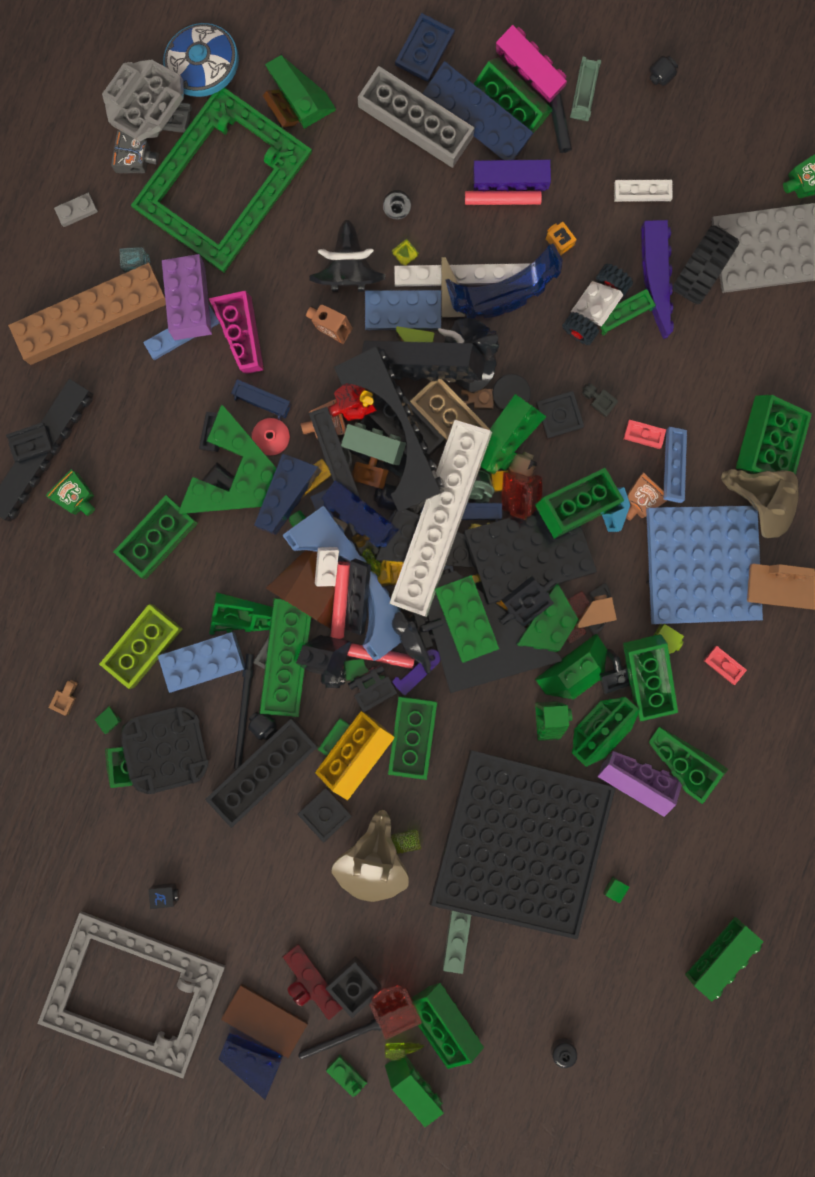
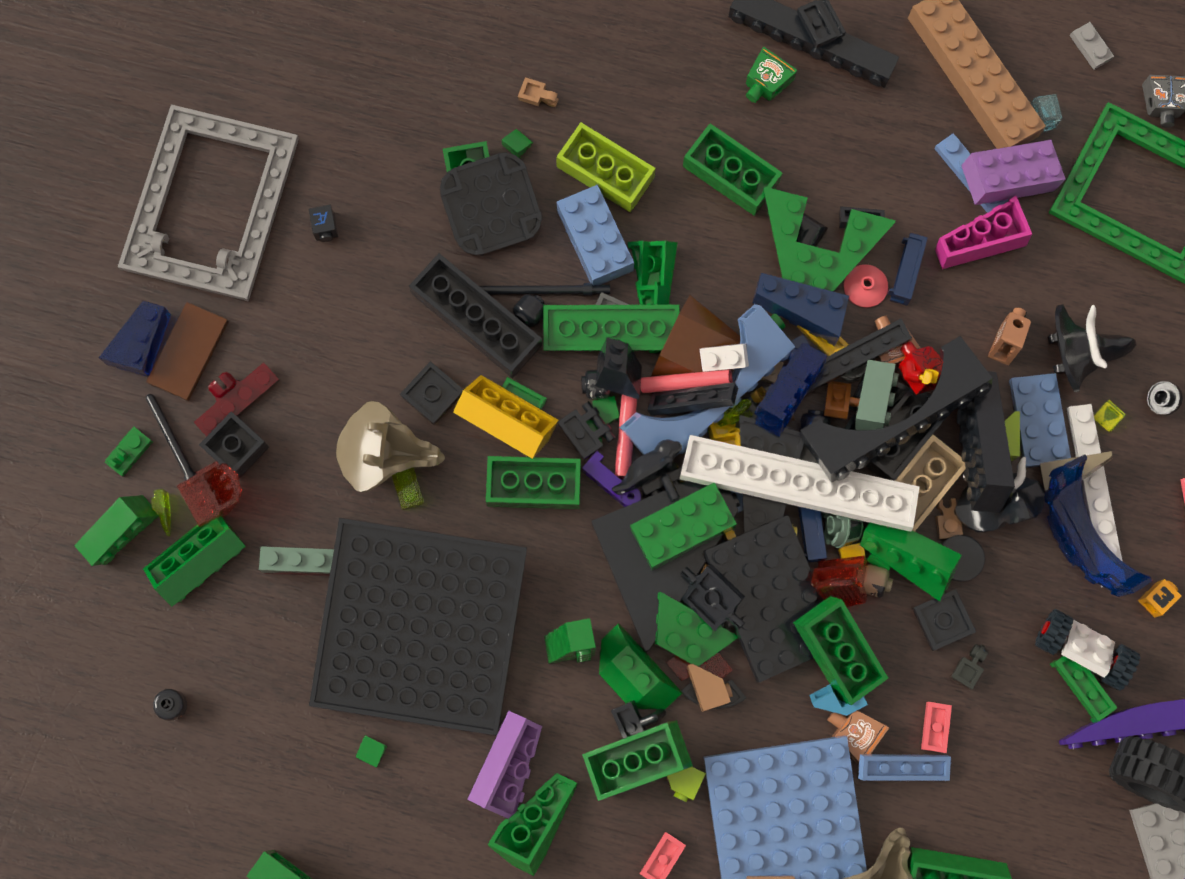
camera: 85 degrees right, 10 degrees down
(603, 729) = (565, 712): green wedge -> none

